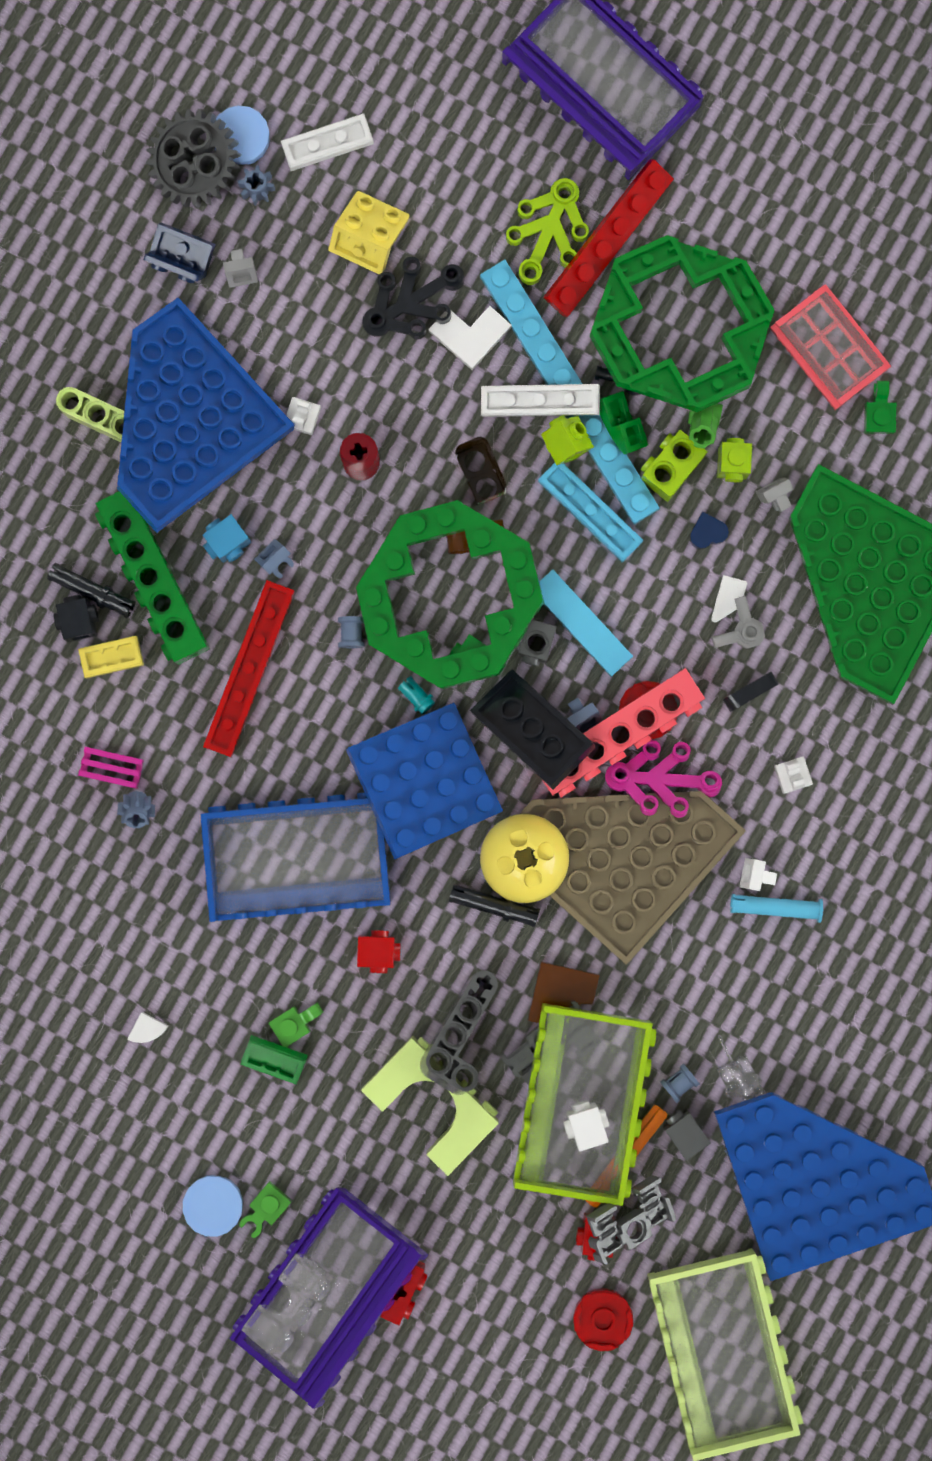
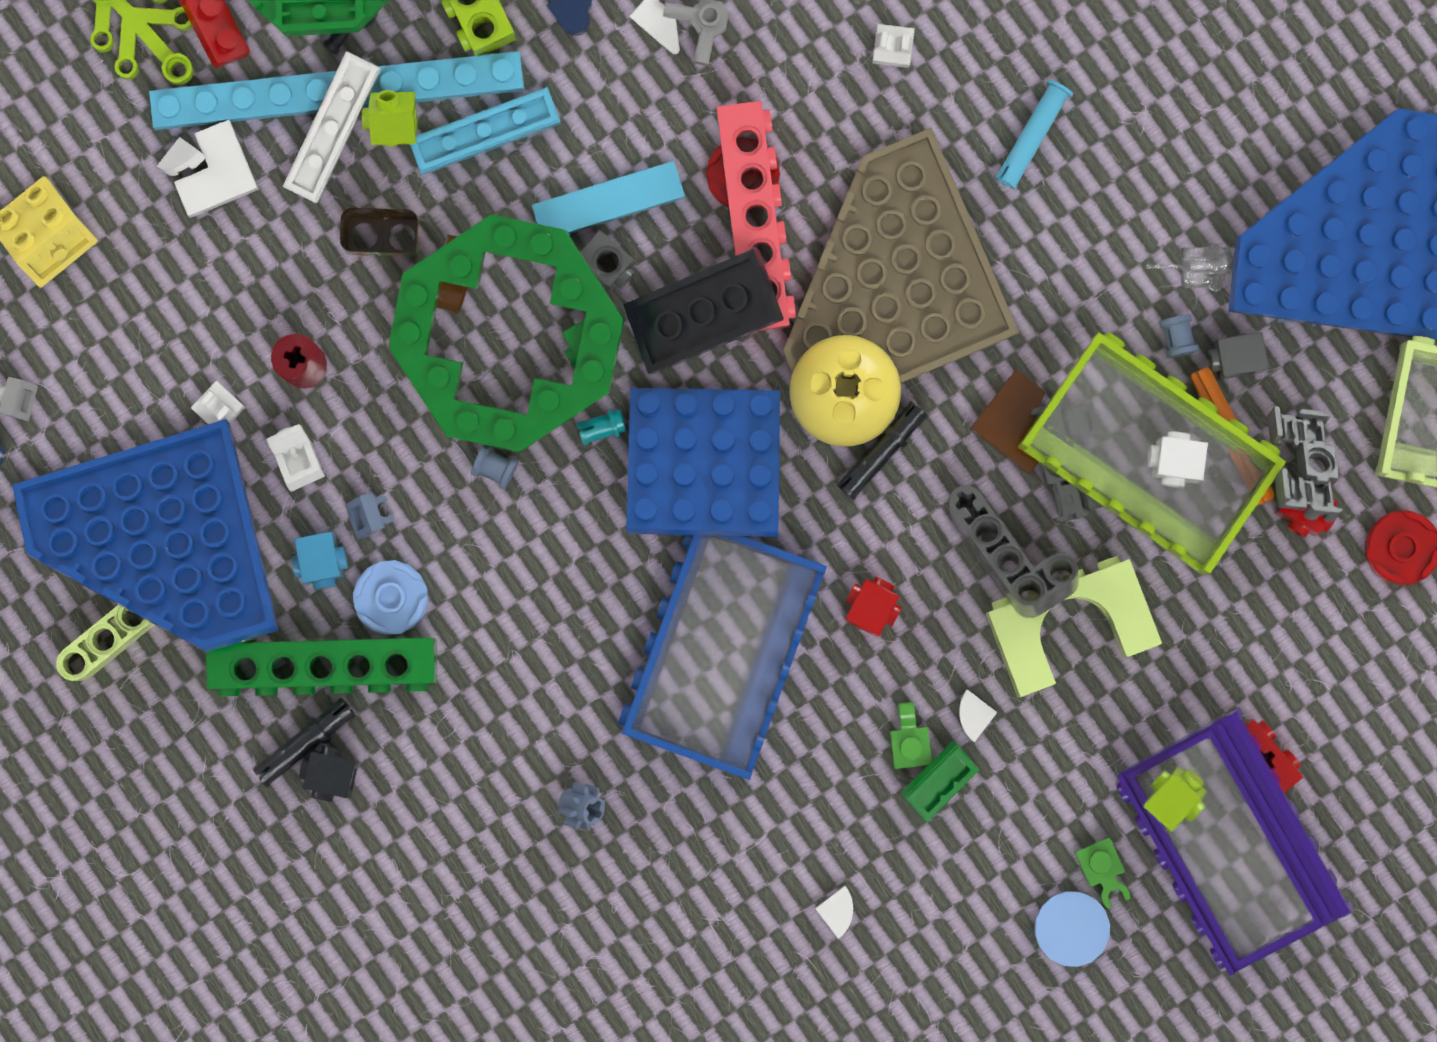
camera: 65 degrees left, 0 degrees up
(87, 762) = (499, 839): dark pink tile -> none
(111, 657) = (392, 755): light yellow plate -> none
(223, 602) = (390, 597): none -> light blue tile
(249, 668) = (481, 603): red plate -> none
(291, 487) = (295, 457): none -> white bracket
(306, 1285) = (1211, 857): clear arch -> none
(334, 1062) = (974, 715): none -> white tile
(338, 1239) = (1176, 797): none -> lime brick
(410, 302) = (146, 223): black plant -> none
(468, 304) = (180, 157): none -> white tile
(583, 717) = (717, 247): sand blue tile -> none
(624, 430) = (414, 48): green slope -> none
(658, 779) = (827, 198): dark pink plant -> none
(750, 691) = (777, 48): black beam -> none
(754, 875) = (986, 141): white tile -> none

